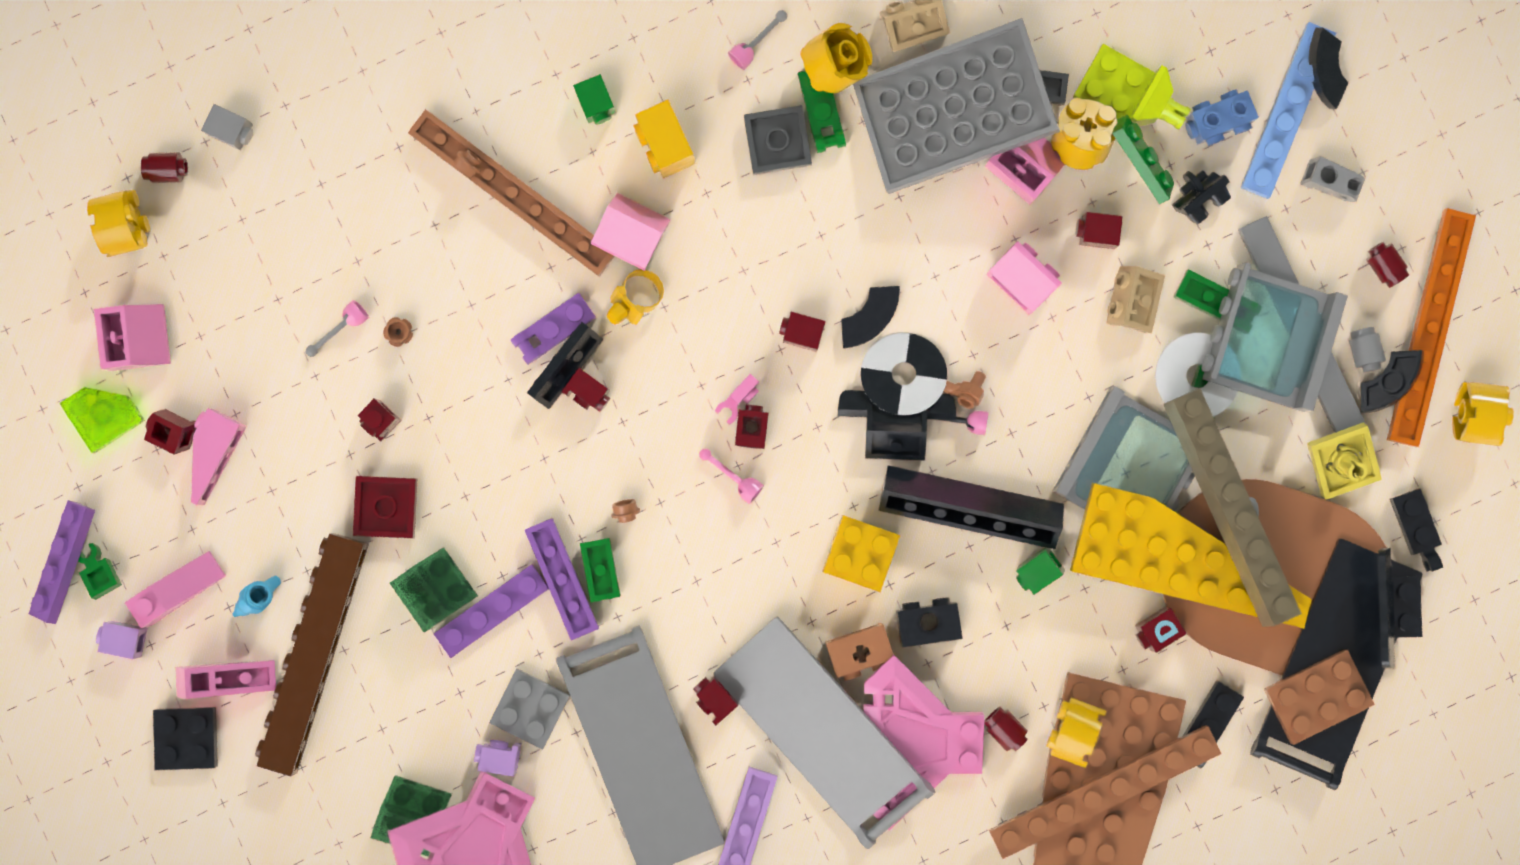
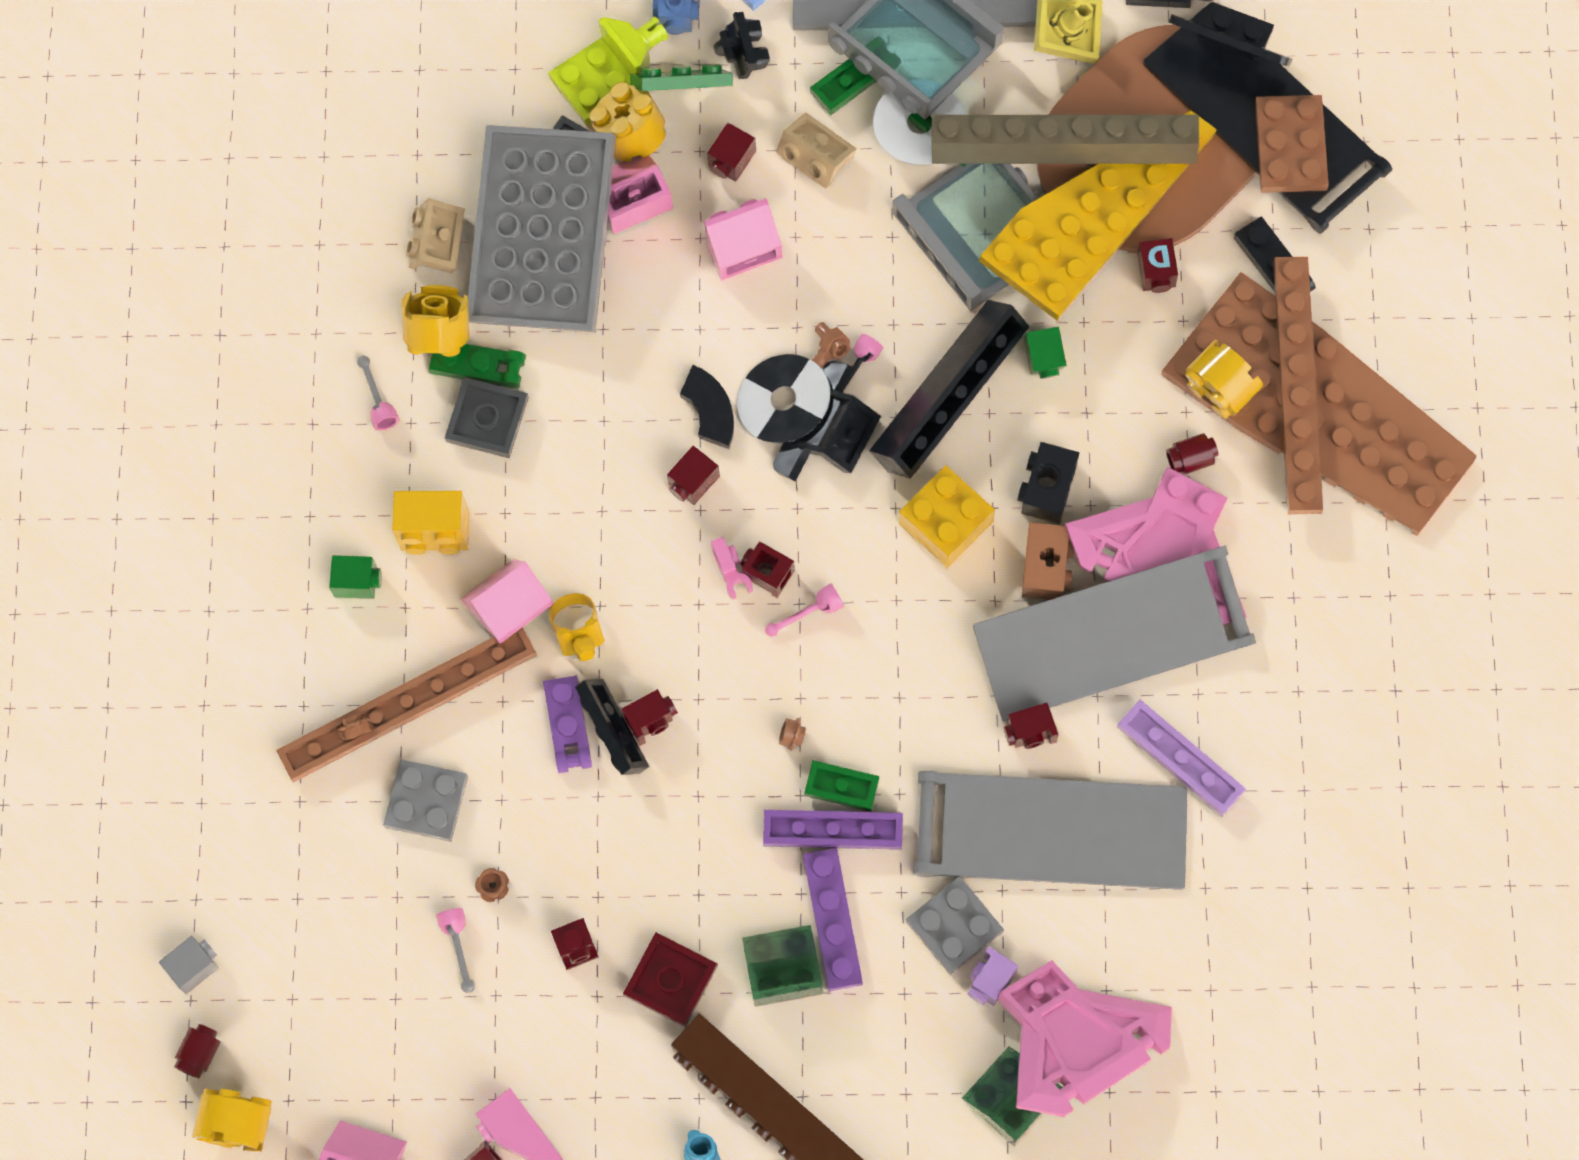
camera: 60 degrees left, 15 degrees down
(442, 246) = (425, 800): none -> light grey plate

